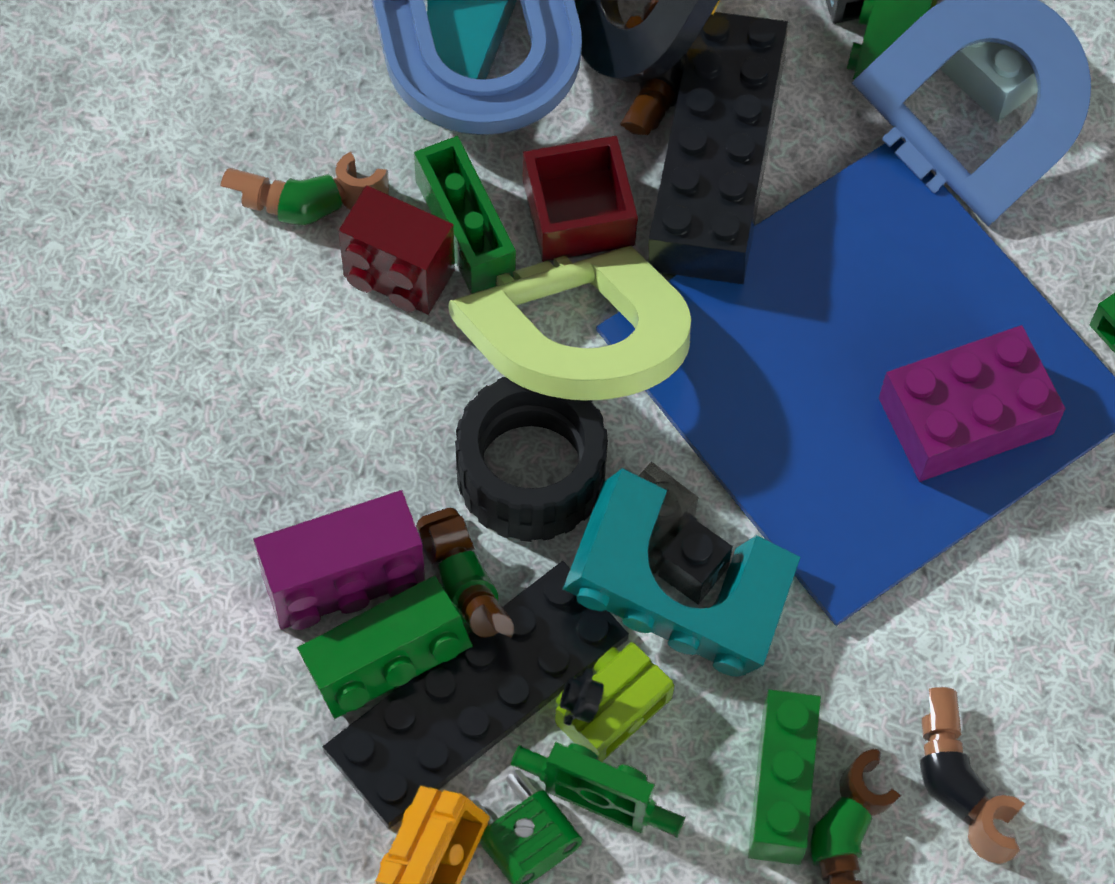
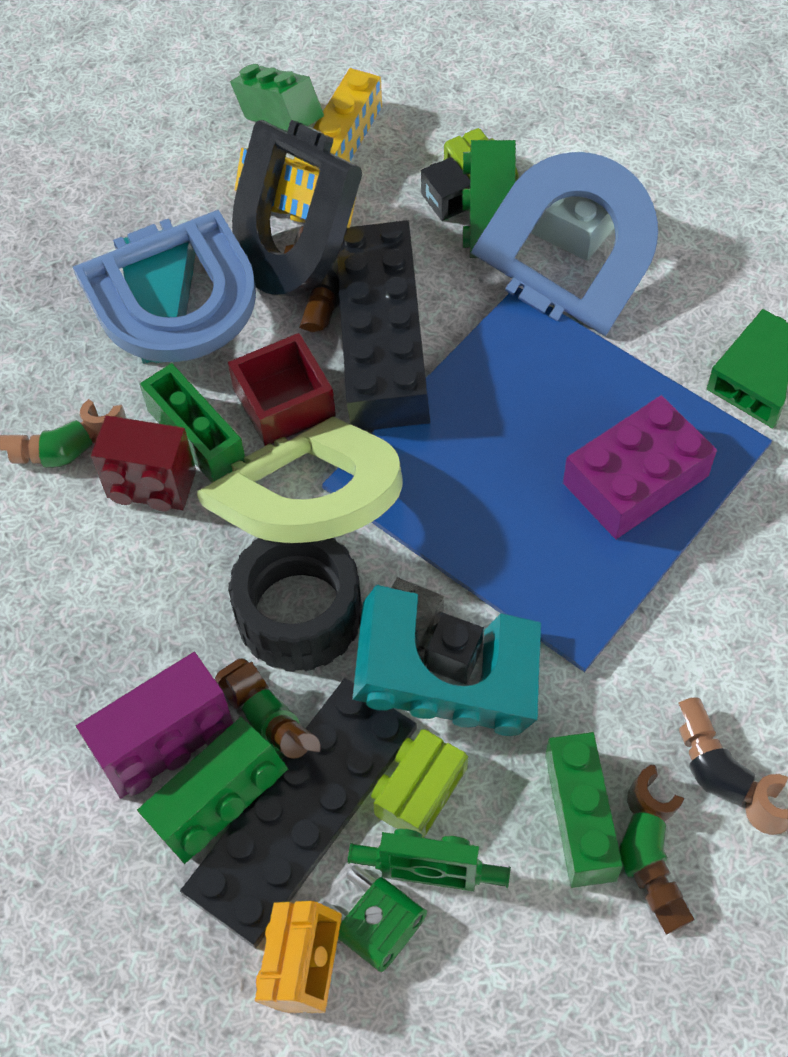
camera: 10 degrees left, 5 degrees down
(581, 698) = (394, 787): black plate -> none

